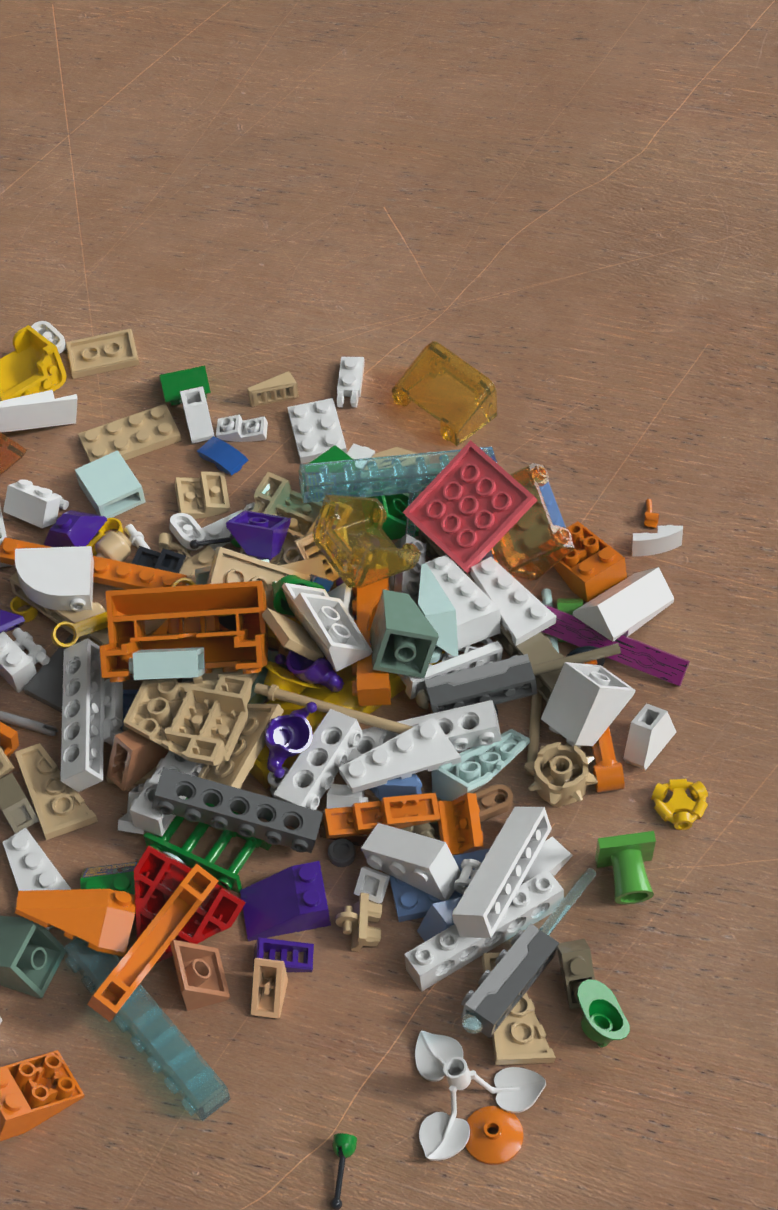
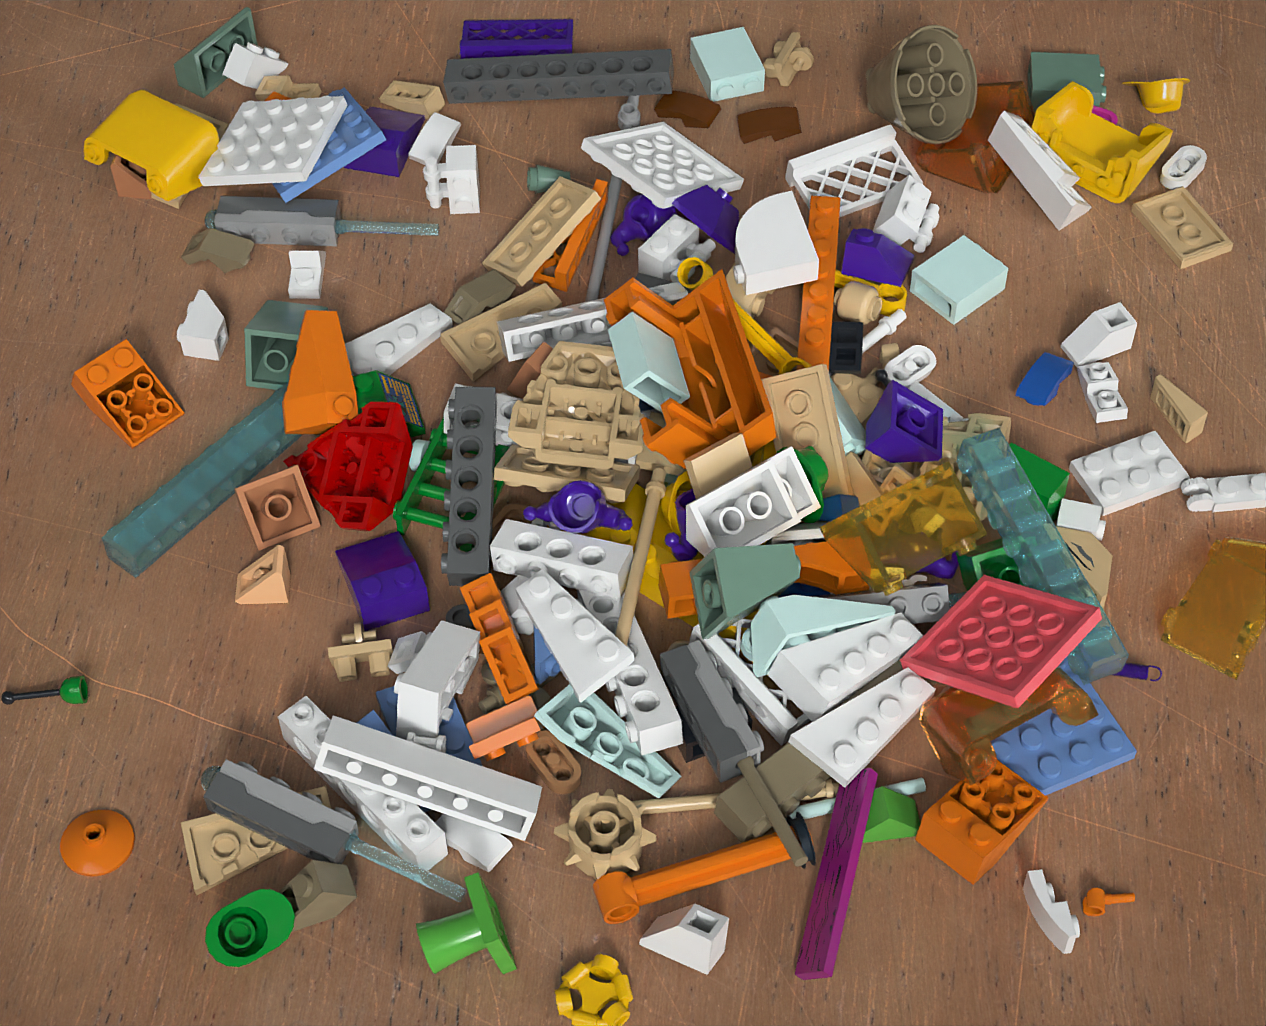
camera: 75 degrees right, 0 degrees up
(132, 434) = (1050, 283): tan plate -> none
(152, 943) = (319, 456): orange arch -> none
(183, 380) = (1157, 314): green slope -> none
(202, 495) = (976, 374): tan slope -> none
(273, 945) = (308, 564): dark purple slope -> none
(442, 1056) = (92, 792): white plant -> none
(585, 703) = (710, 838): white slope -> none
(627, 604) = (907, 879): white slope -> none

